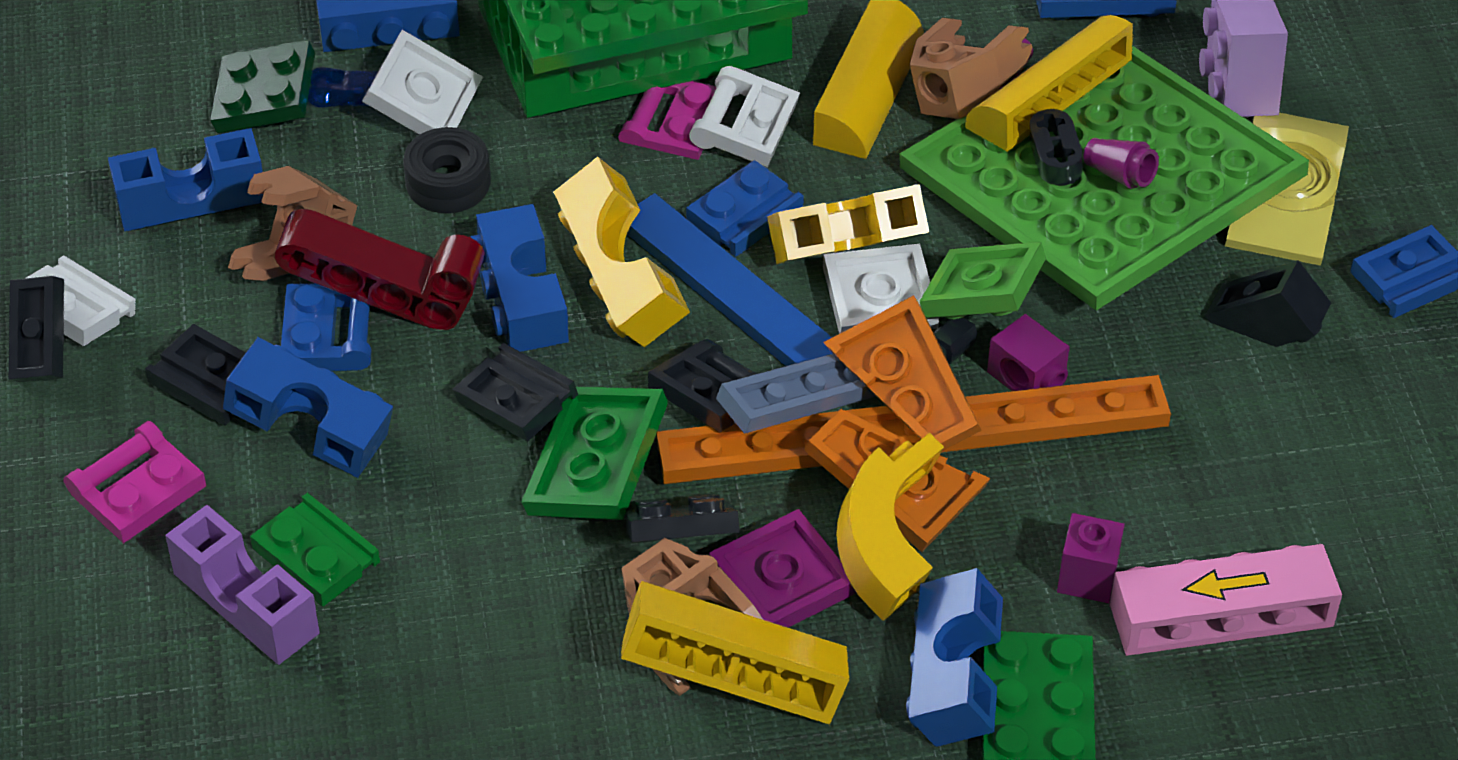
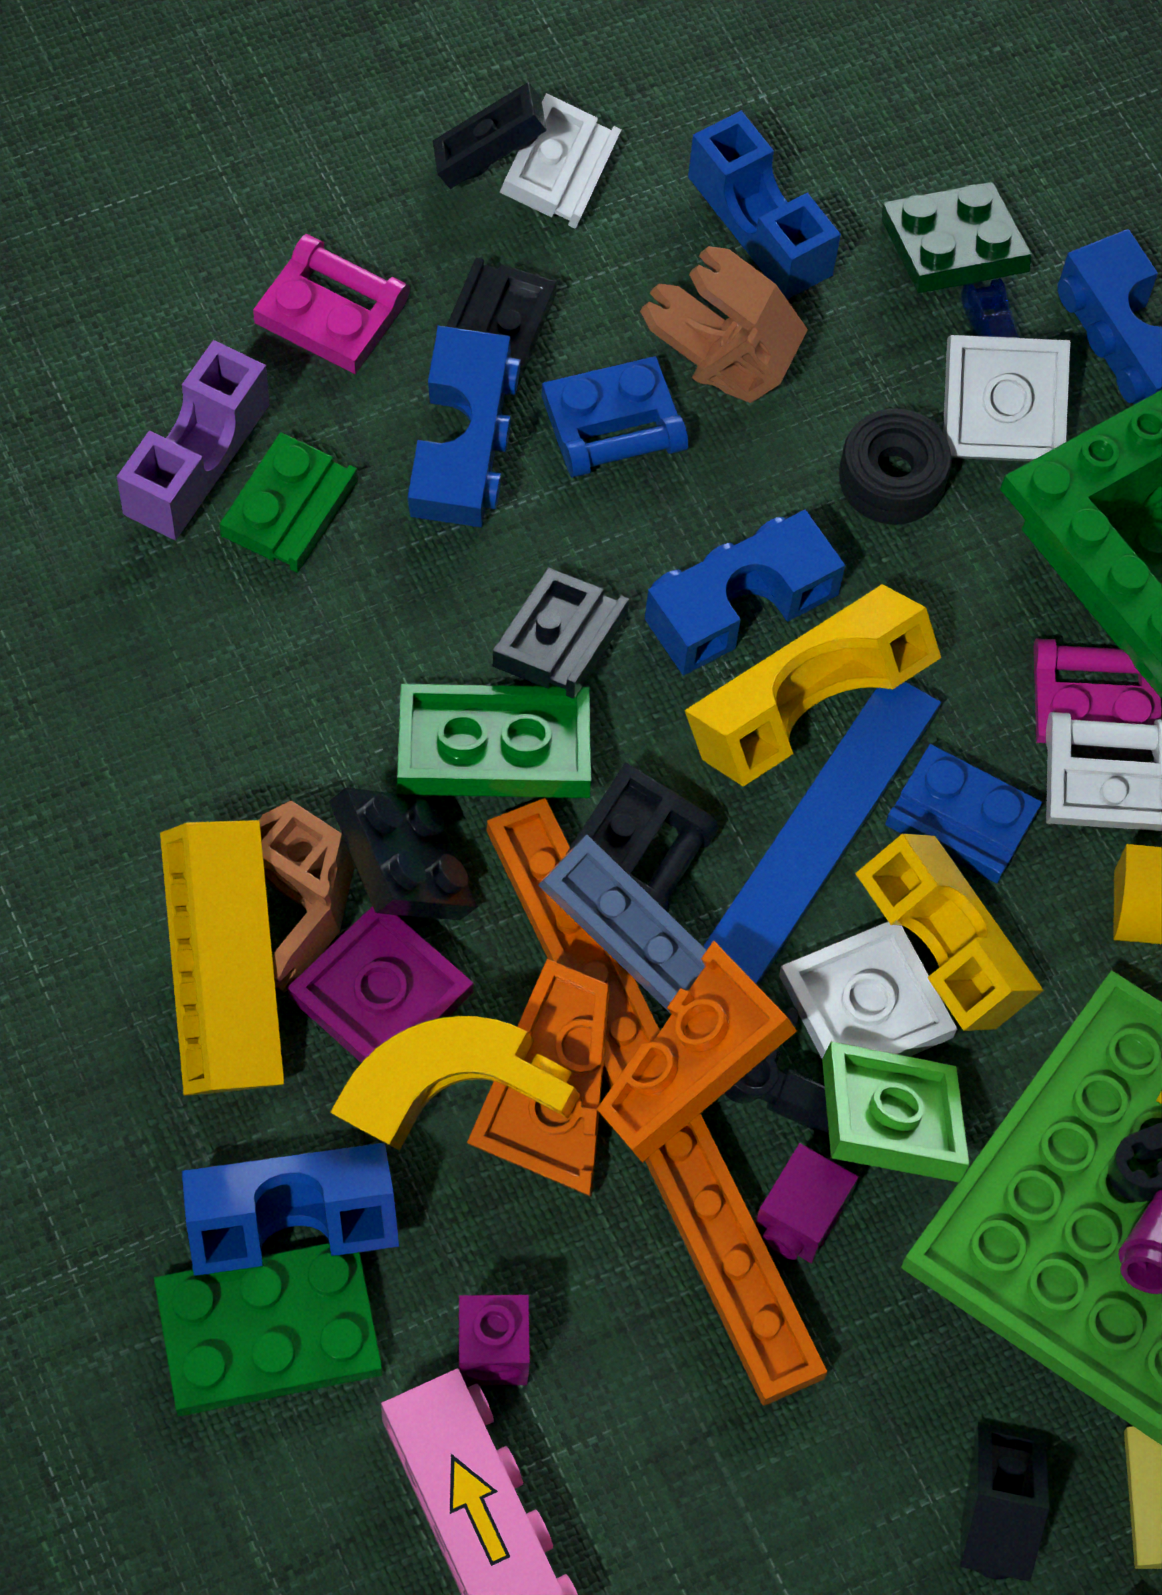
camera: 70 degrees right, 15 degrees up
(380, 270) = (687, 490): dark red beam -> none

